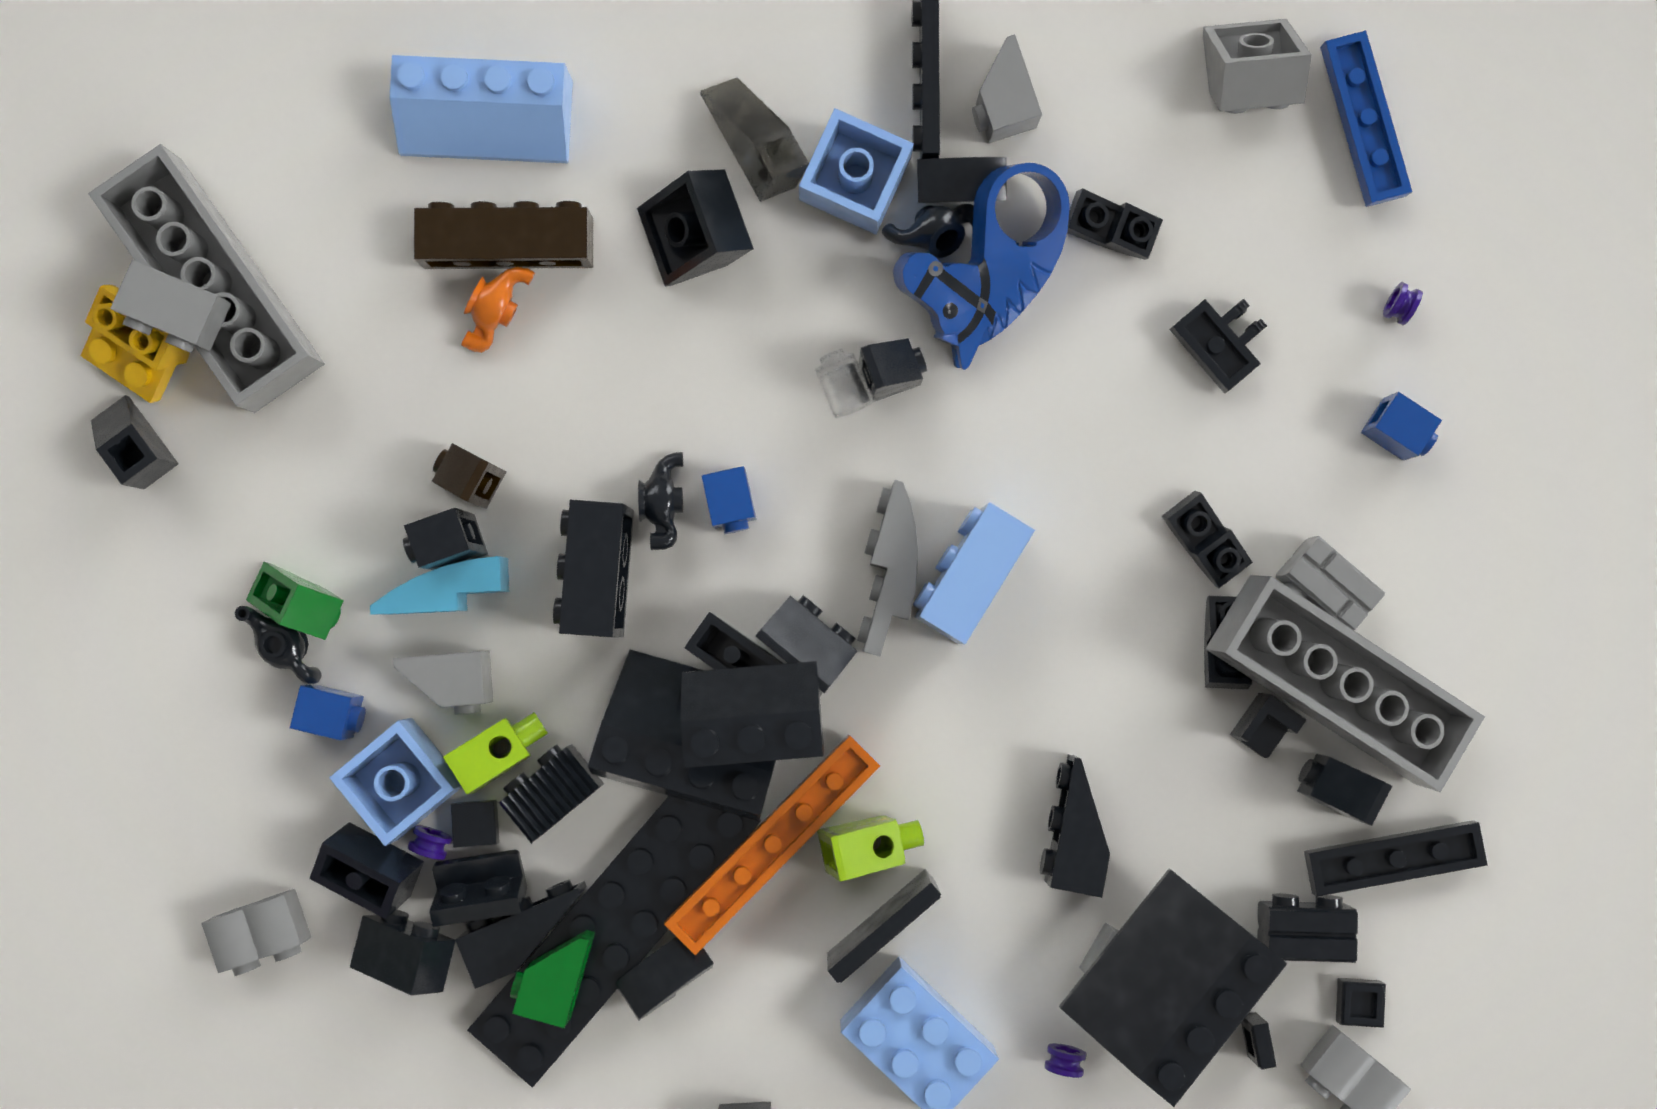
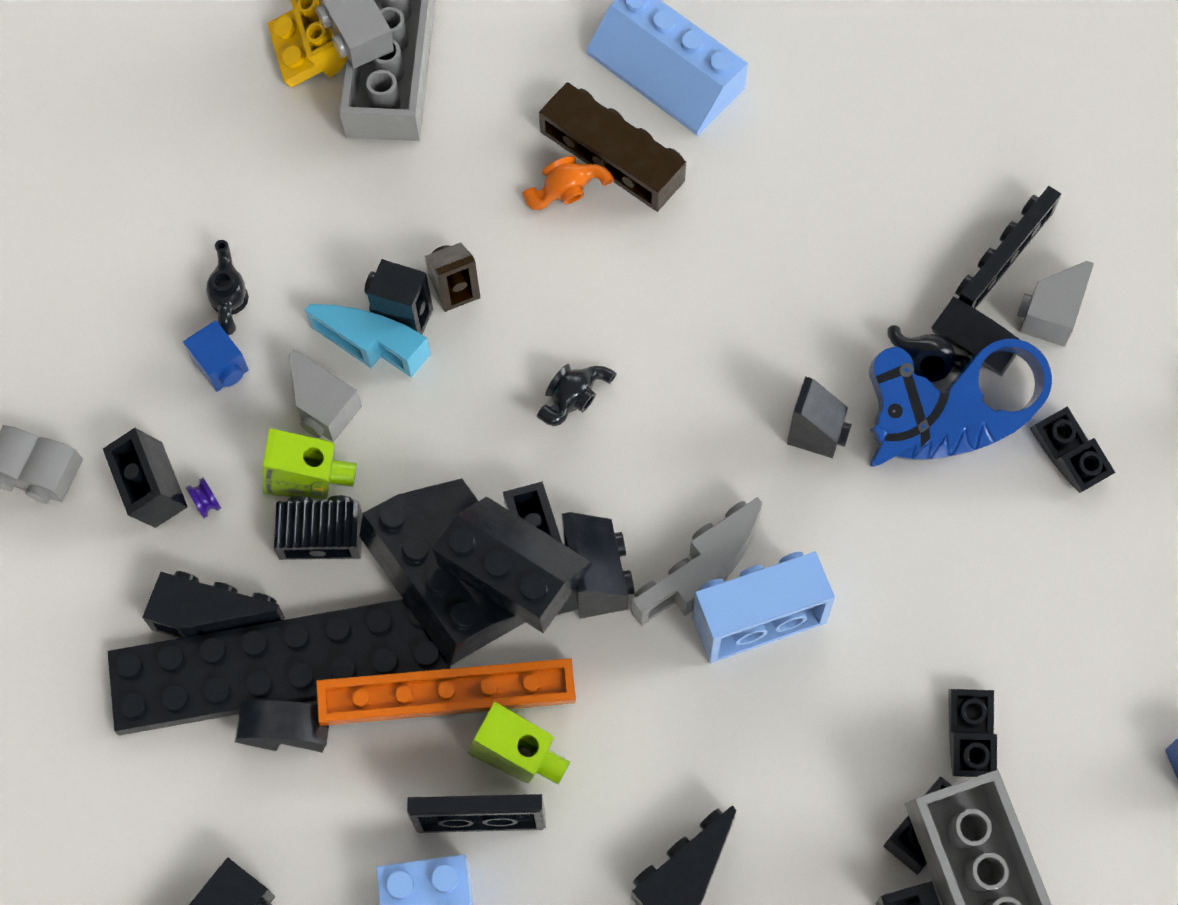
camera: 45 degrees right, 20 degrees down
(130, 445) = (248, 98): black slope -> none
(294, 601) = (263, 270): green slope -> none
(396, 781) = (221, 434): light blue brick -> none
(403, 953) = (118, 551): black brick -> none
(475, 823) = (245, 512): black tile -> none
(478, 888) = (210, 551): black bracket -> none
(552, 982) = (204, 654): green slope -> none
(594, 568) = (486, 396): black brick -> none
(694, 226) = (753, 230): black slope -> none
(729, 499) = (623, 426): blue brick -> none
(757, 138) = (844, 207): clear smoke slope -> none
(843, 383) = (773, 410): clear brick -> none
(855, 171) = (900, 273): light blue brick -> none
(1216, 345) = (1090, 594): black hinge -> none
(1330, 582) = (1052, 837): light grey brick -> none

